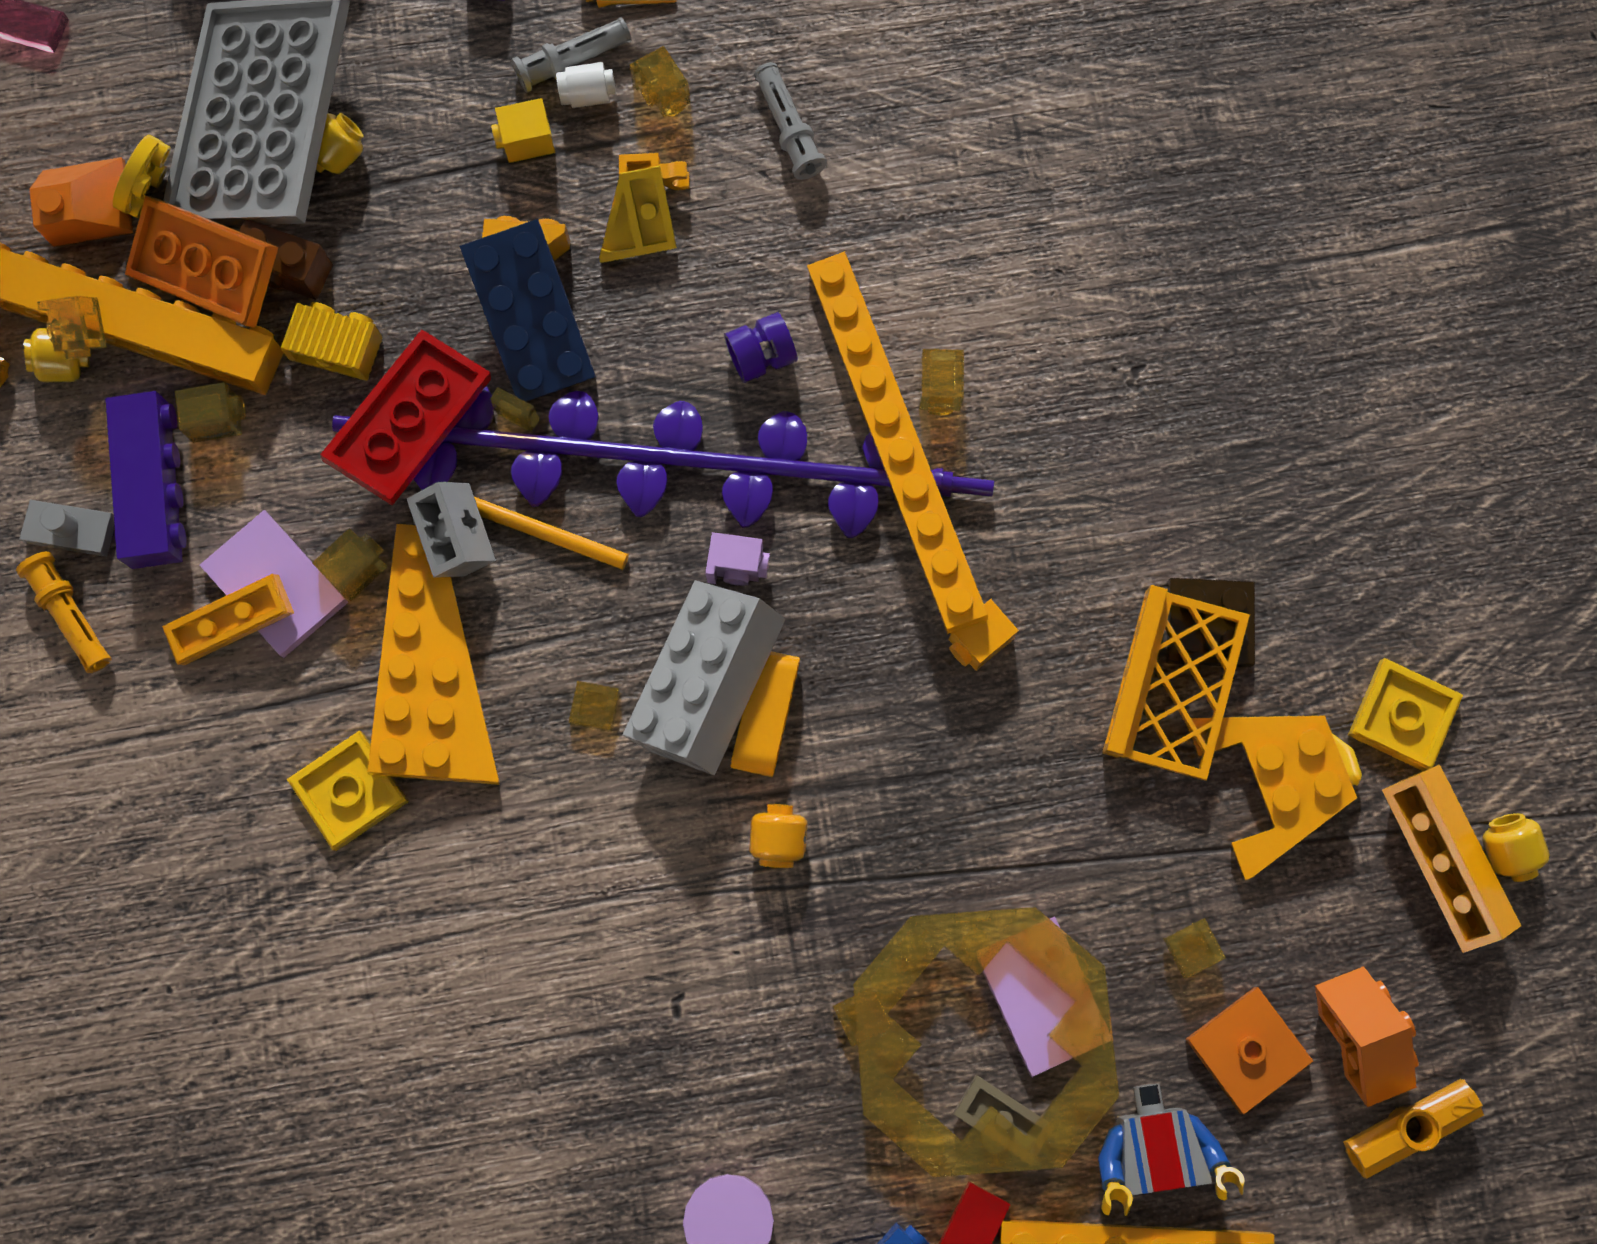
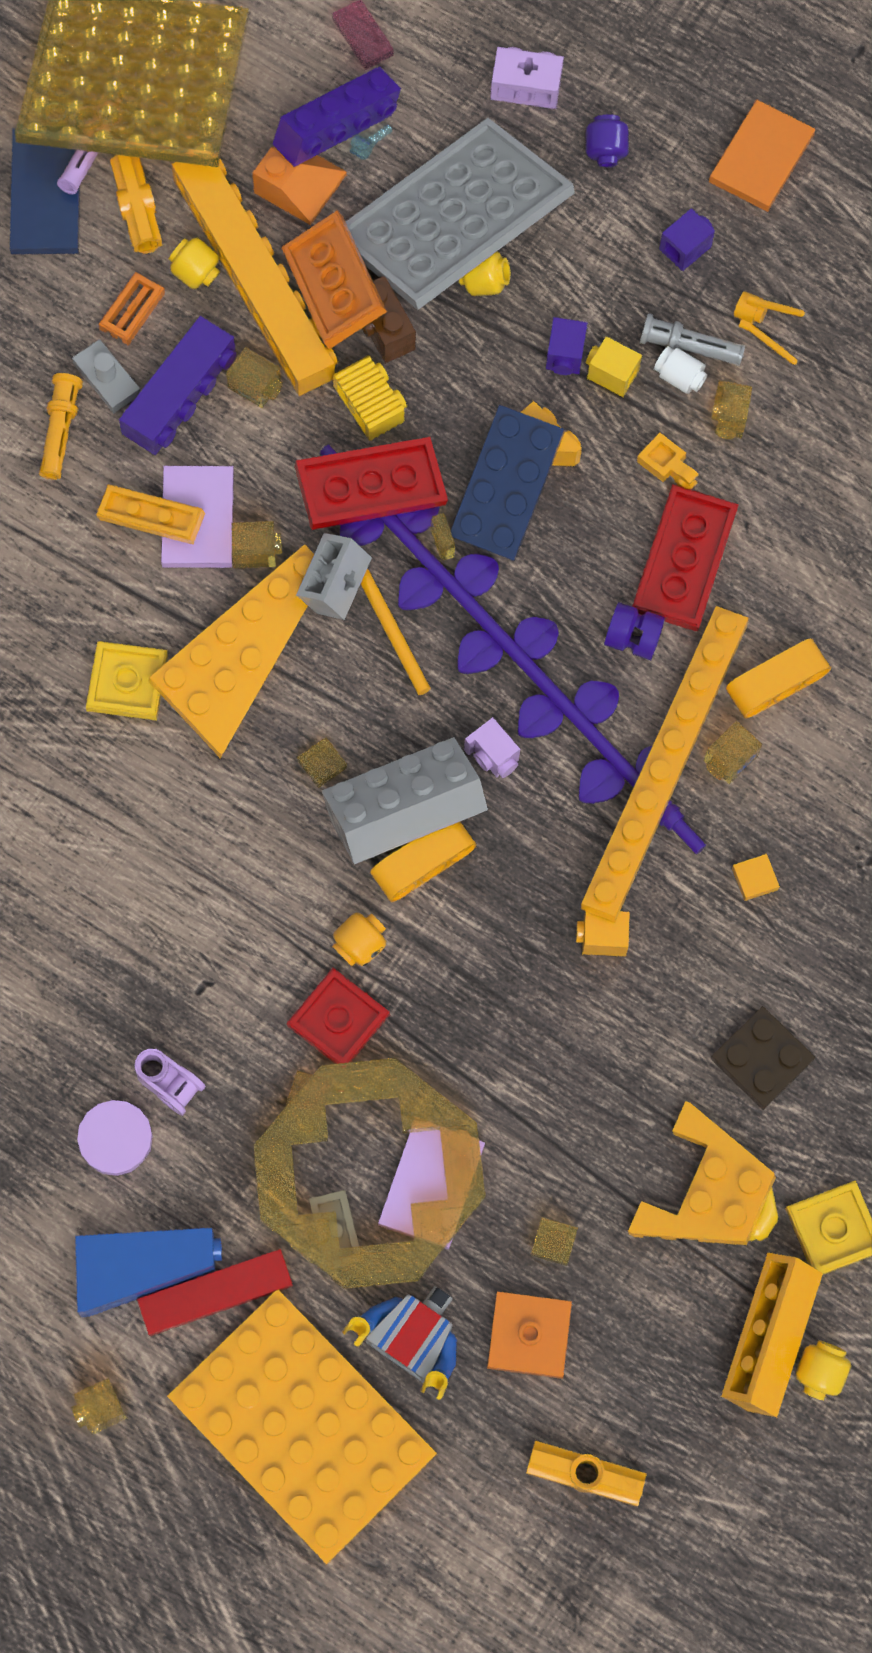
camera: 40 degrees right, 5 degrees down
(50, 436) = (118, 330): none -> orange tile
(64, 111) = (336, 116): none -> dark purple brick
(74, 325) = (221, 256): clear yellow brick -> none
(117, 121) = (363, 147): none -> clear light blue hand
(141, 170) = (352, 192): yellow tile -> none
(466, 147) = (566, 346): none -> dark purple brick
(638, 217) = (634, 483): yellow wing -> none
(731, 1125) = (169, 1081): none -> lavender piece
(740, 246) = (685, 557): none -> red tile
(794, 133) = (788, 517): light grey pin -> none
(824, 924) = (338, 1018): none -> red tile
(918, 282) = (778, 678): none -> light orange beam
(1058, 471) = (755, 877): none -> light orange tile
(1139, 672) = (683, 1042): light orange fence -> none
(1371, 1035) = (611, 1390): orange brick -> none

